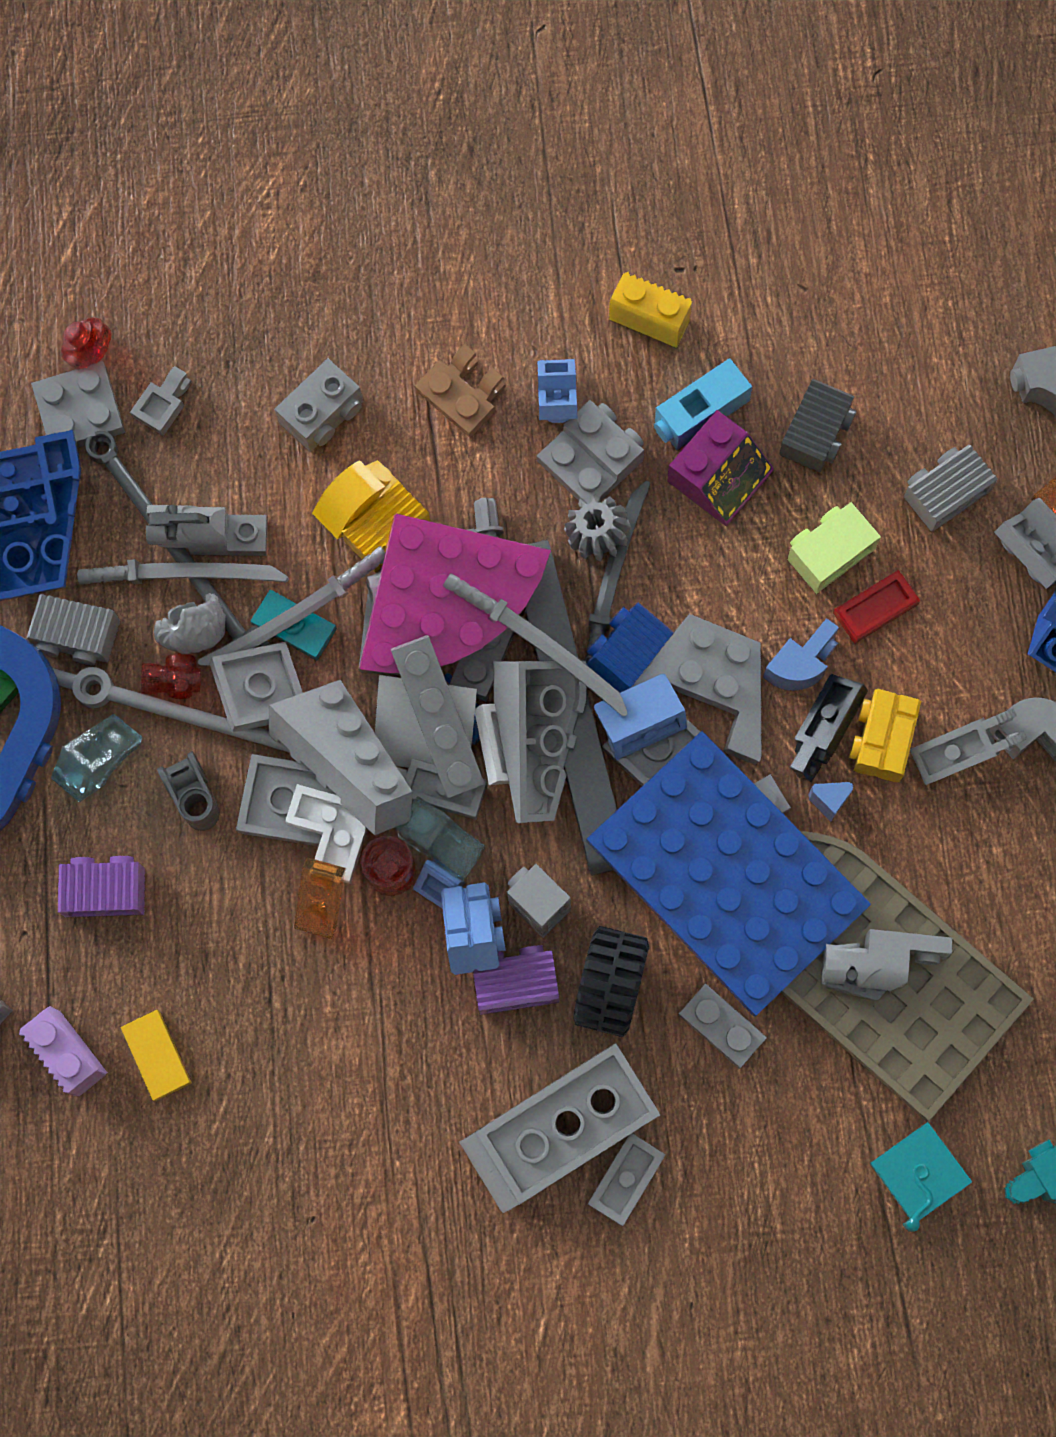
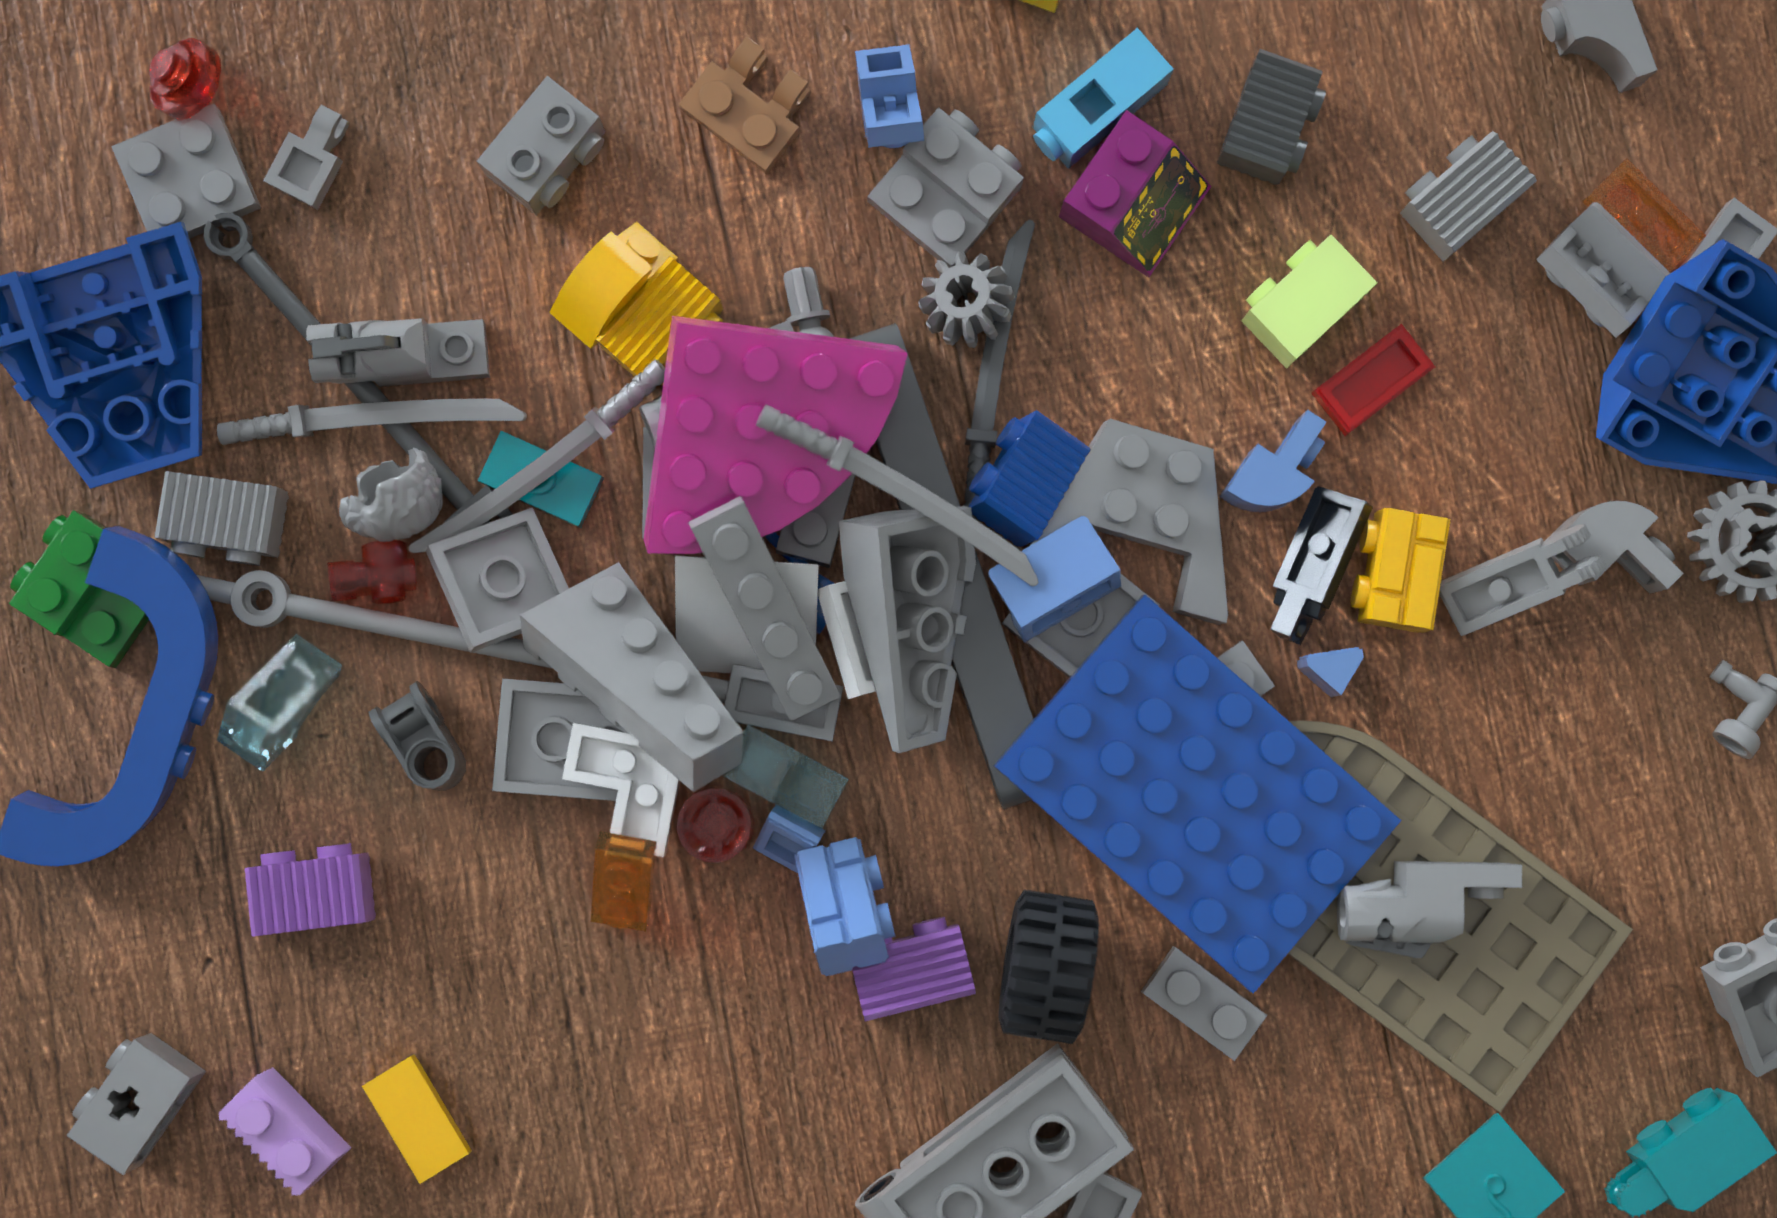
camera: 15 degrees left, 10 degrees up
(538, 899) = (933, 858): light grey brick -> none

